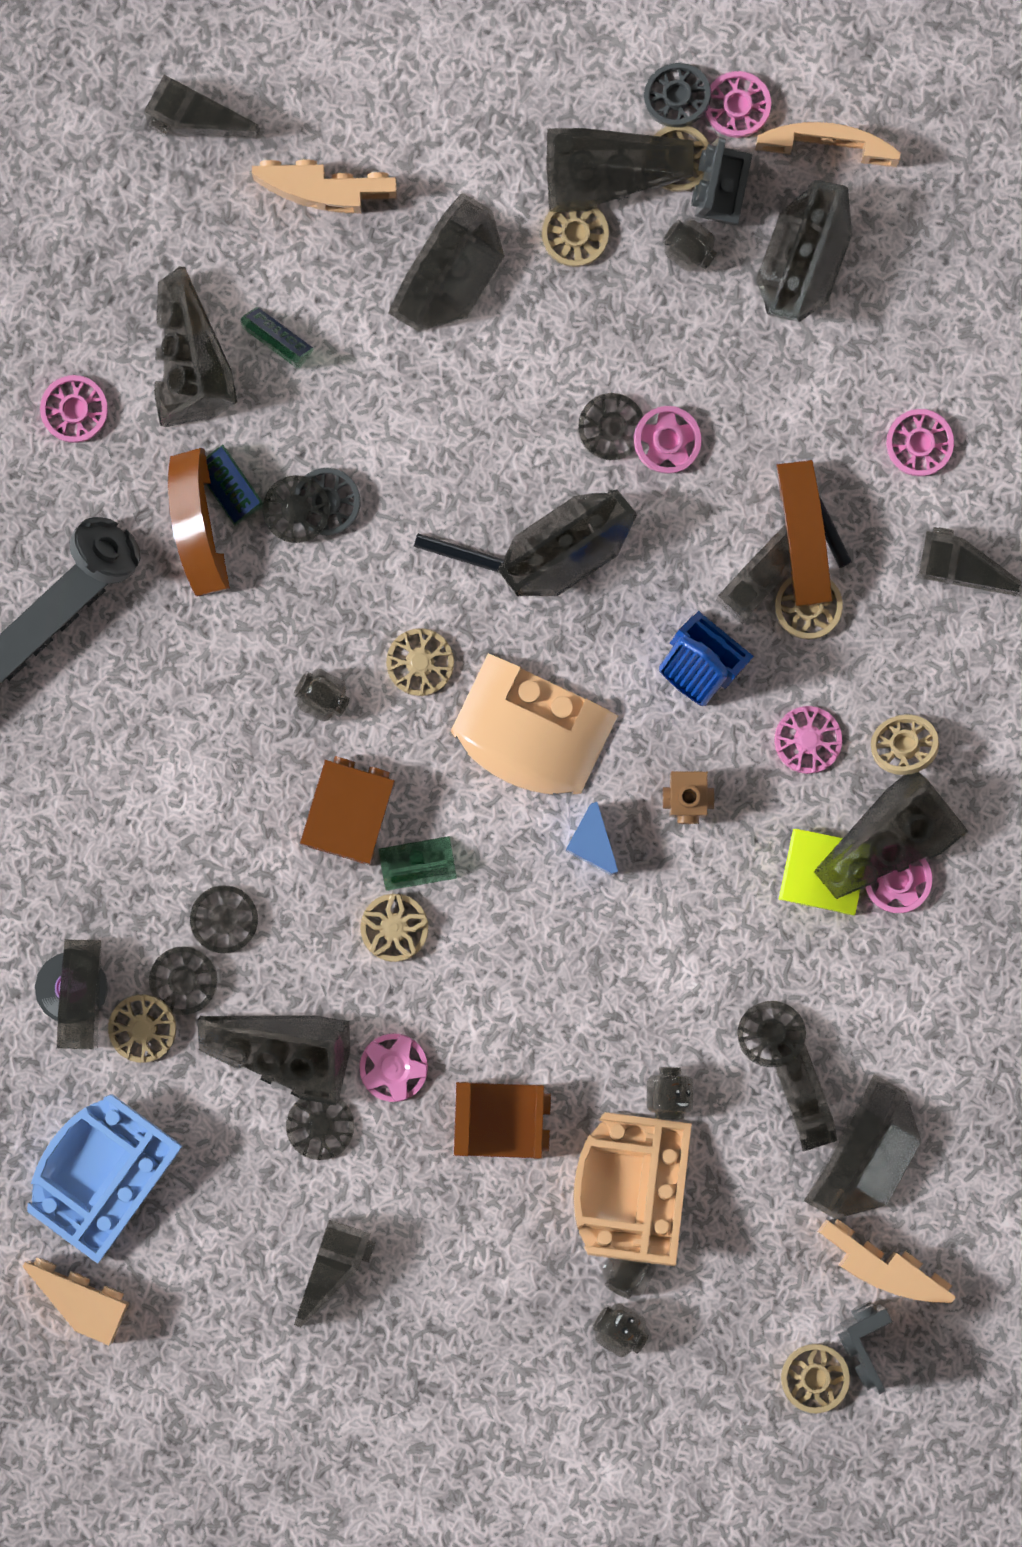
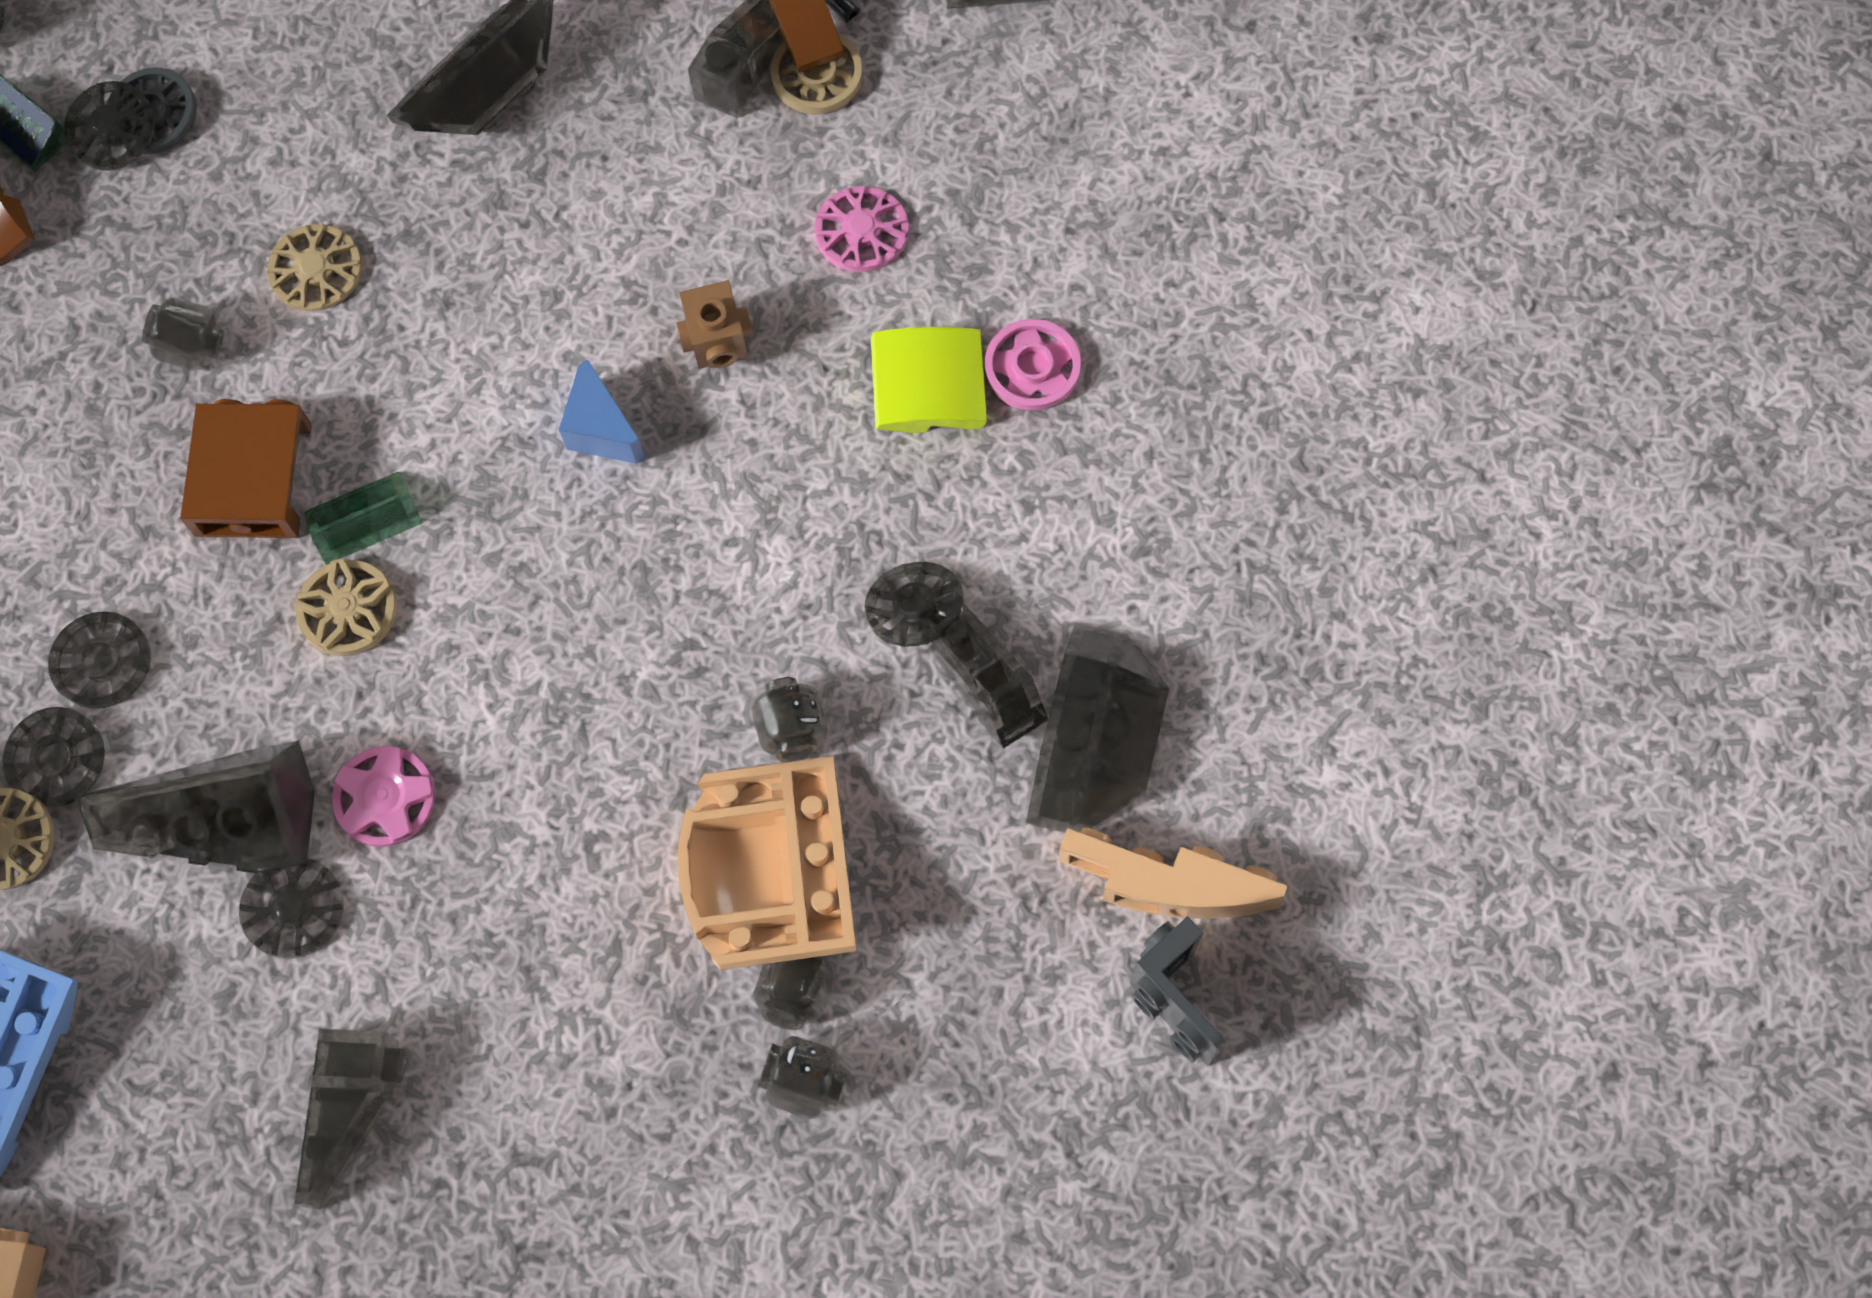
camera: 10 degrees left, 15 degrees down
(457, 552) = (342, 127): black piece -> none
(501, 1120) = (552, 827): dark orange panel -> none
(531, 729) = (485, 309): light nougat slope -> none
(703, 659) = (687, 159): blue piece -> none
(815, 1378) = (1117, 1073): tan wheel -> none
(896, 831) = (1011, 298): clear smoke wedge -> none
(904, 744) = (990, 192): tan wheel -> none

